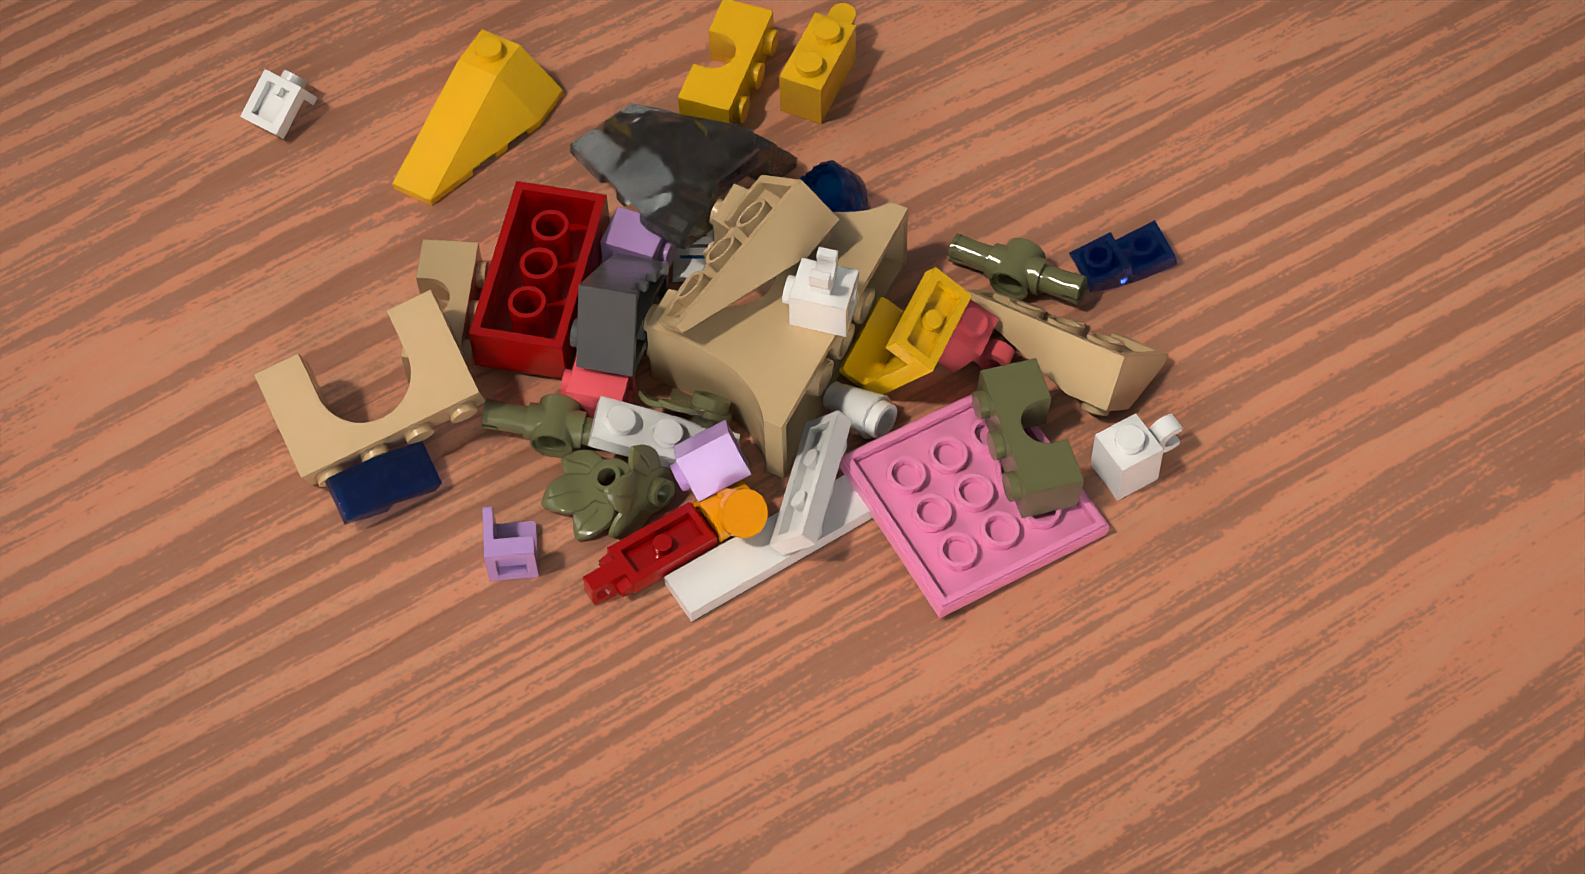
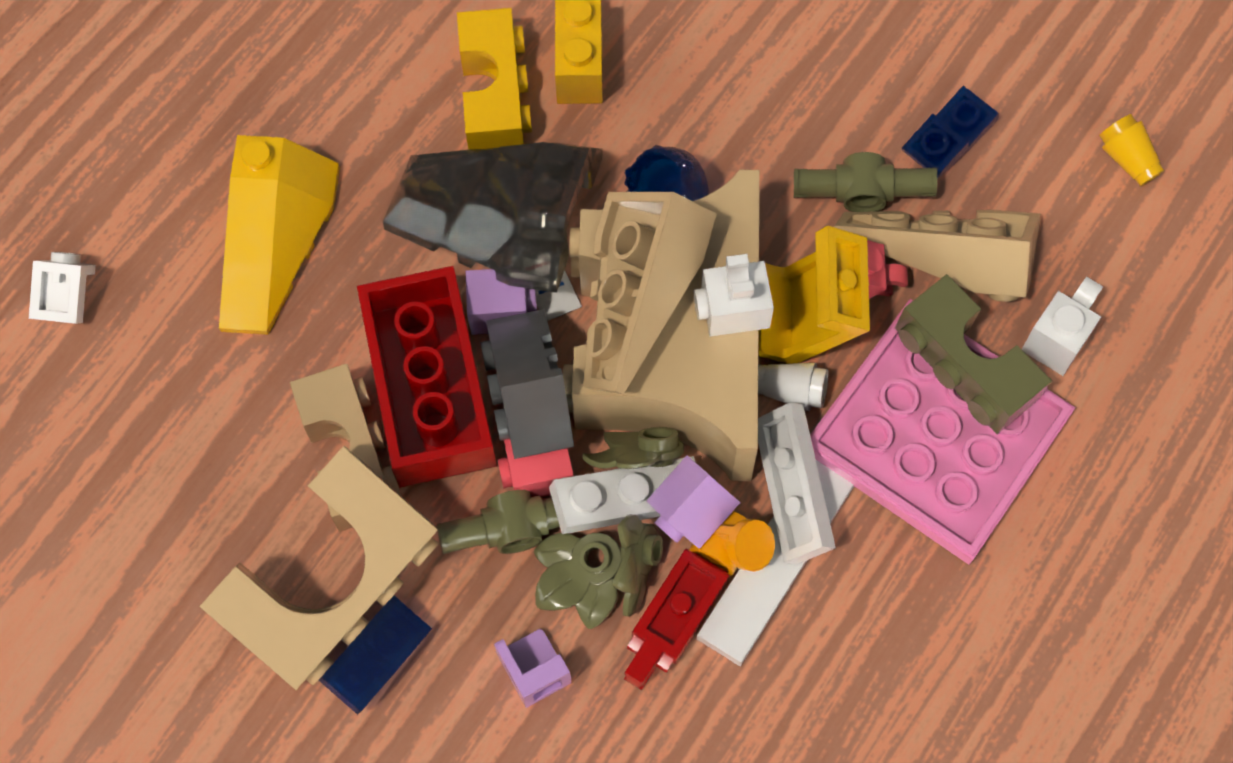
camera: 25 degrees left, 10 degrees up
(1285, 329) = (1132, 149): none -> yellow cone

